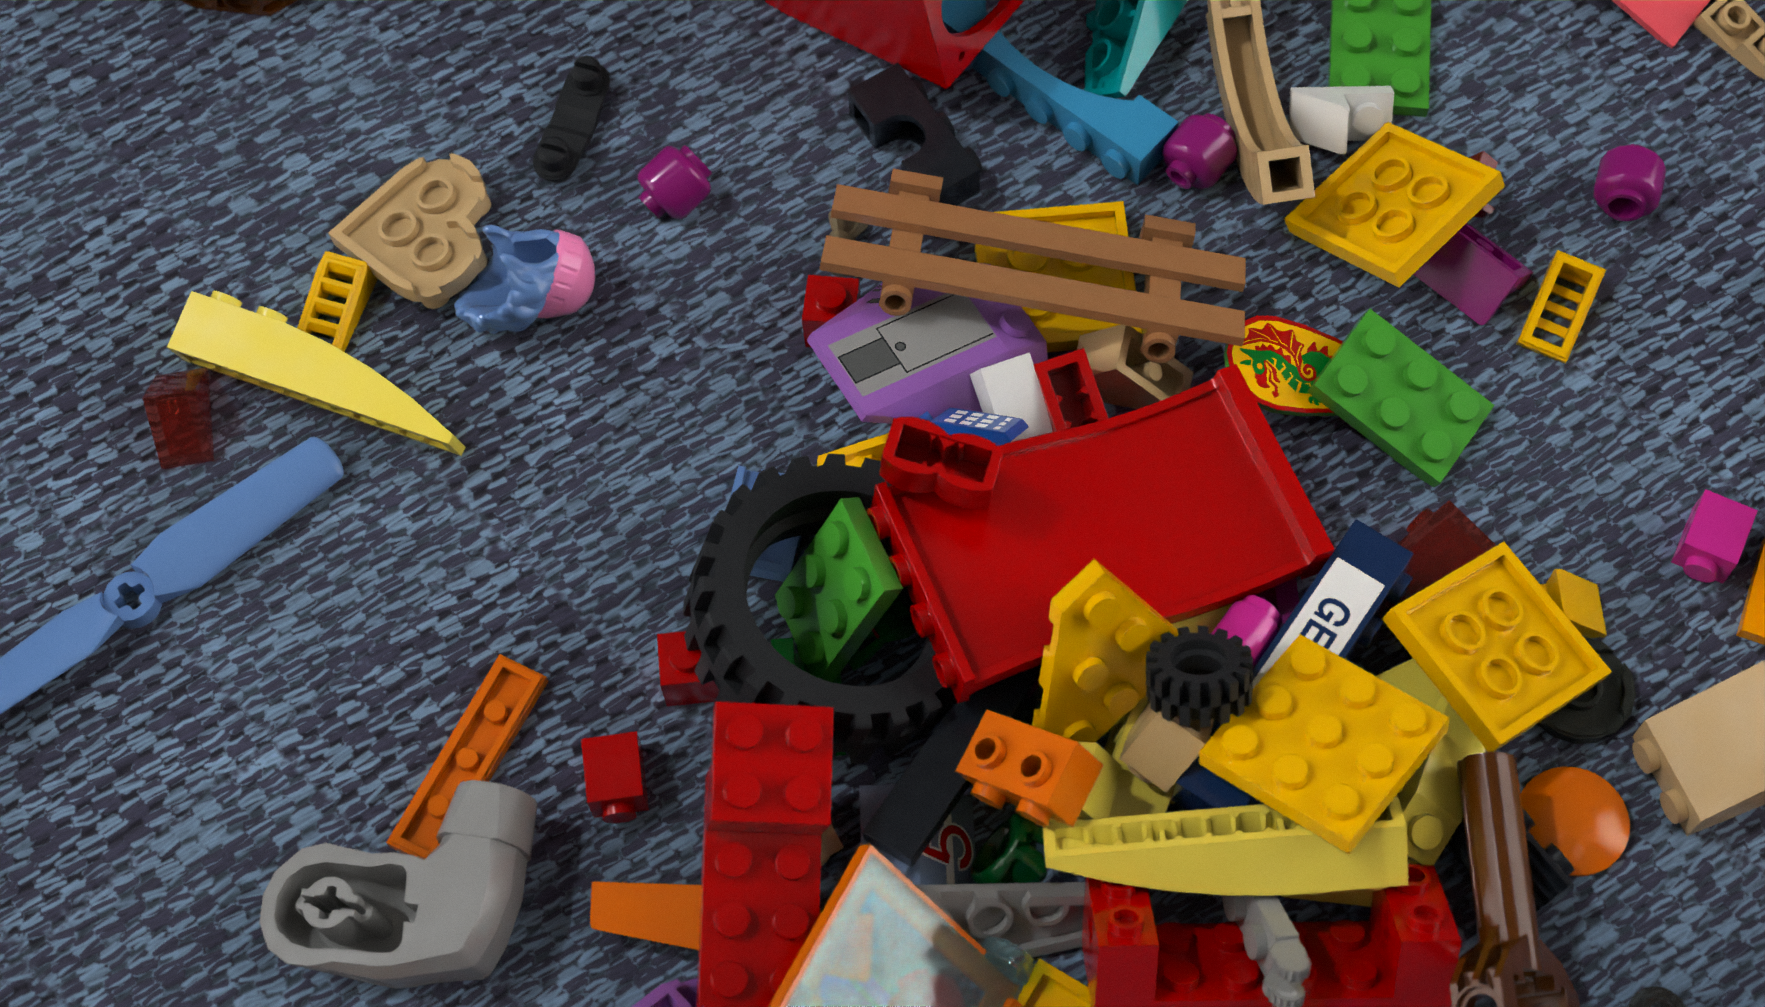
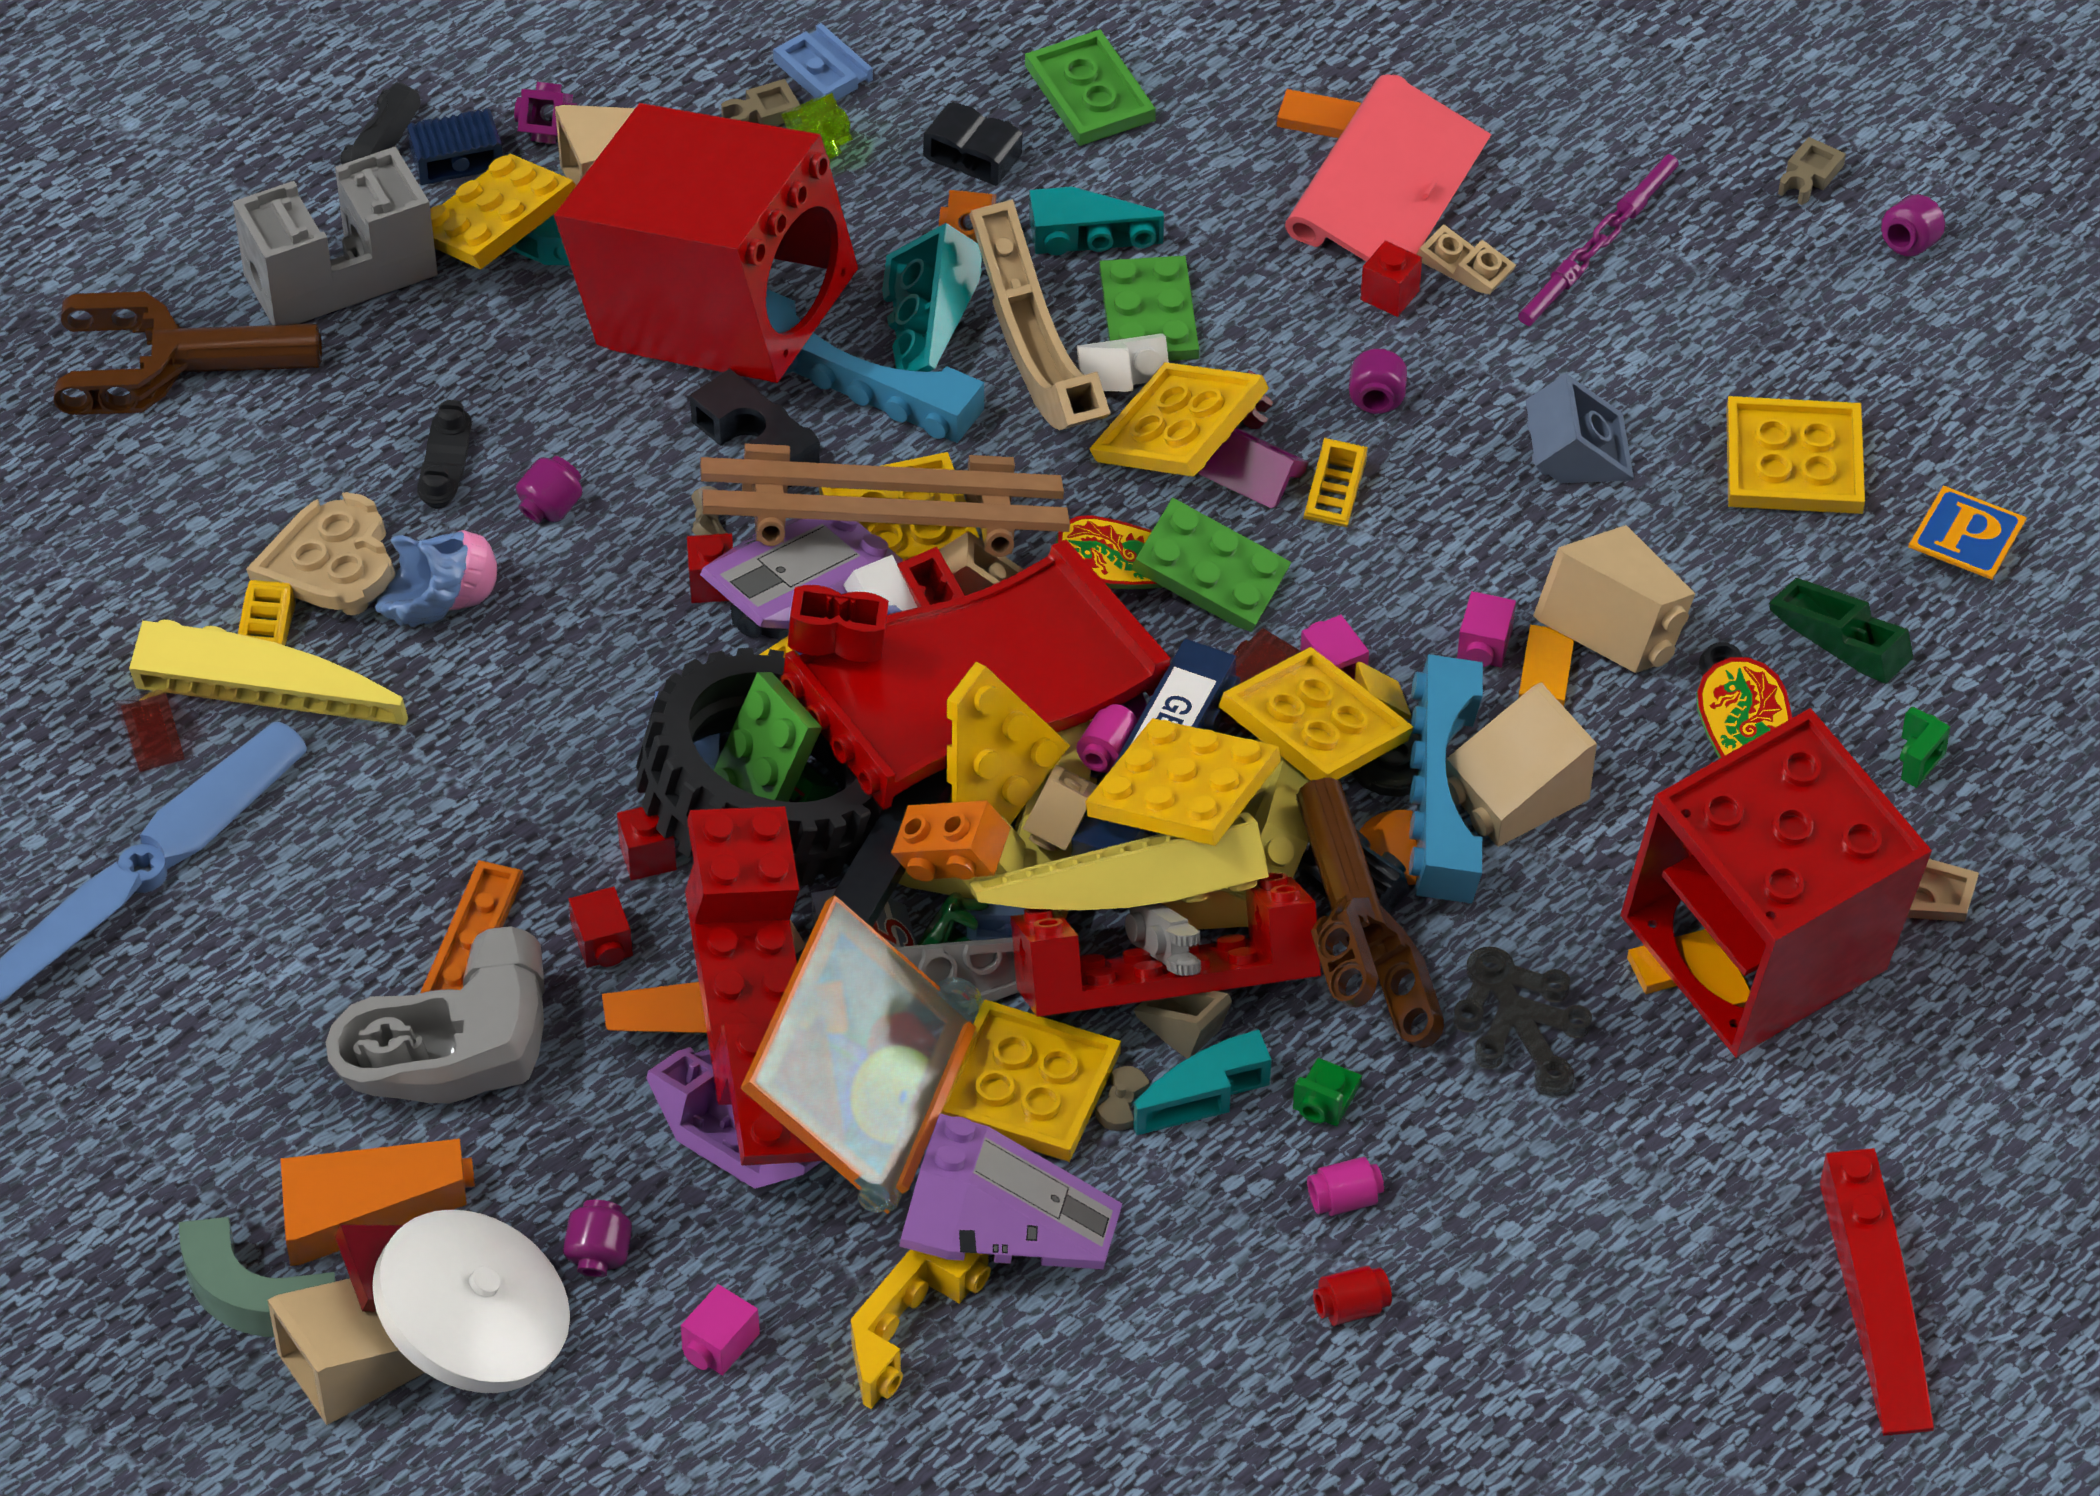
camera: 15 degrees left, 15 degrees down
(1199, 151) = (1008, 404): magenta head -> none
(1199, 676) = (1075, 747): black tyre -> none
(1531, 534) = (1336, 643): none -> dark pink brick
(1626, 858) = (1446, 852): none -> dark azure arch
(1663, 50) = (1391, 278): none -> red brick

